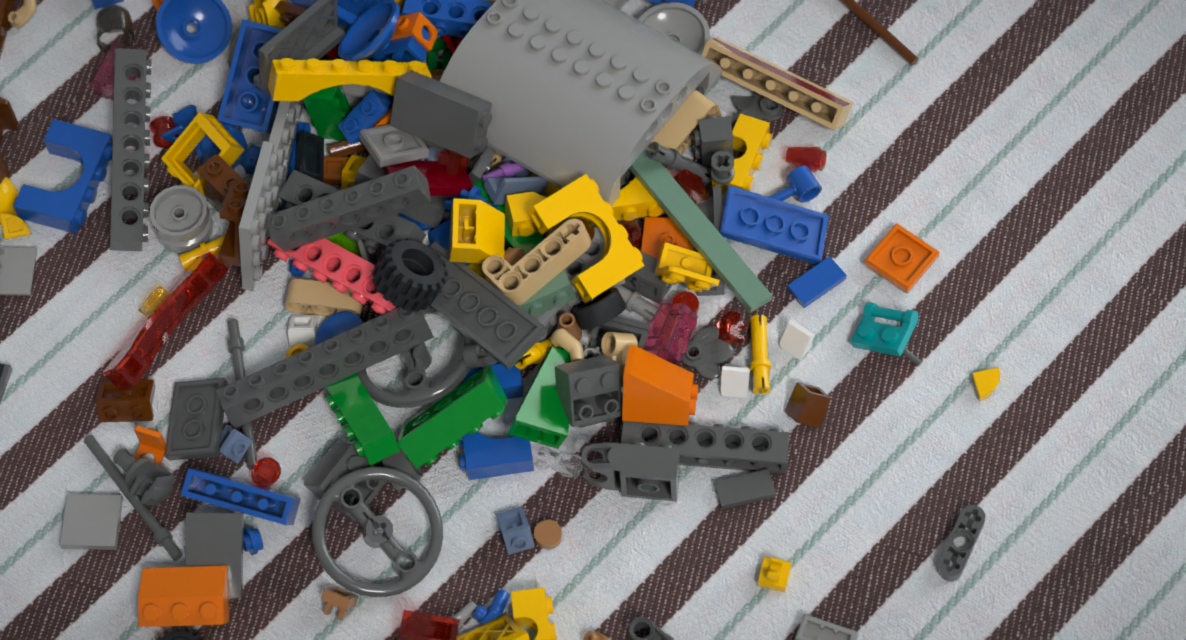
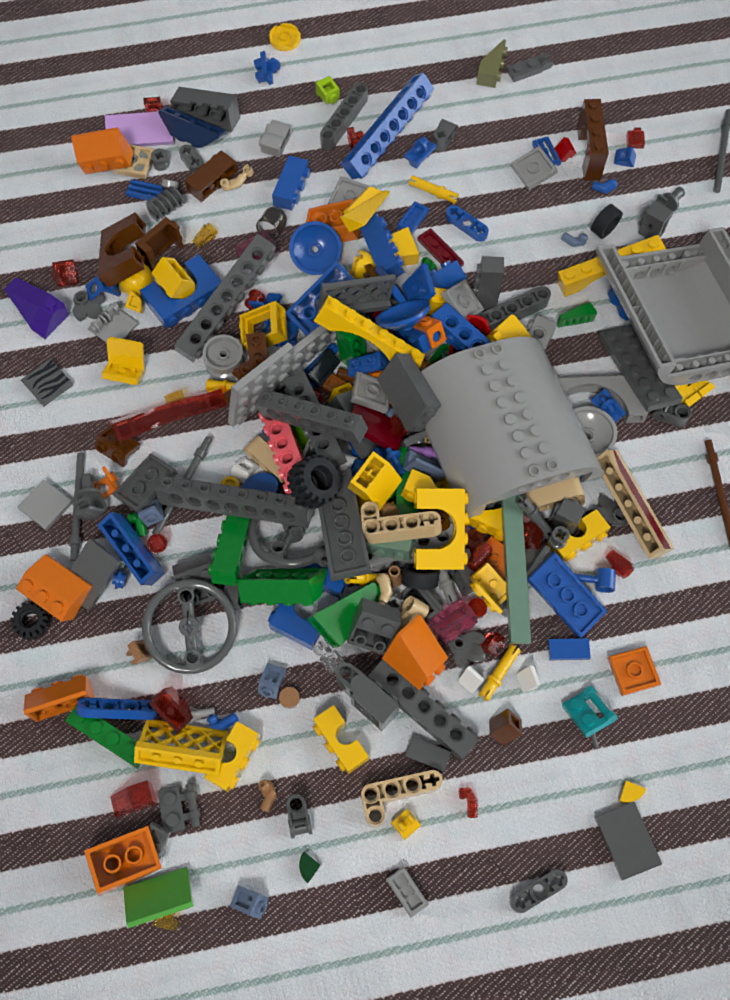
camera: 30 degrees right, 5 degrees up
(39, 94) = (204, 235): none -> clear yellow cone
(48, 165) = (173, 278): none -> yellow slope
(60, 297) = (124, 361): none -> yellow bracket
(223, 465) = (140, 526): none -> green arm
(649, 243) = (479, 556): none -> clear red cone
(659, 547) = (349, 756): none -> yellow arch
(746, 542) = (402, 792): none -> tan beam
(824, 501) = (472, 802): none -> clear red arm
(1017, 431) = (628, 841): none -> dark grey tile

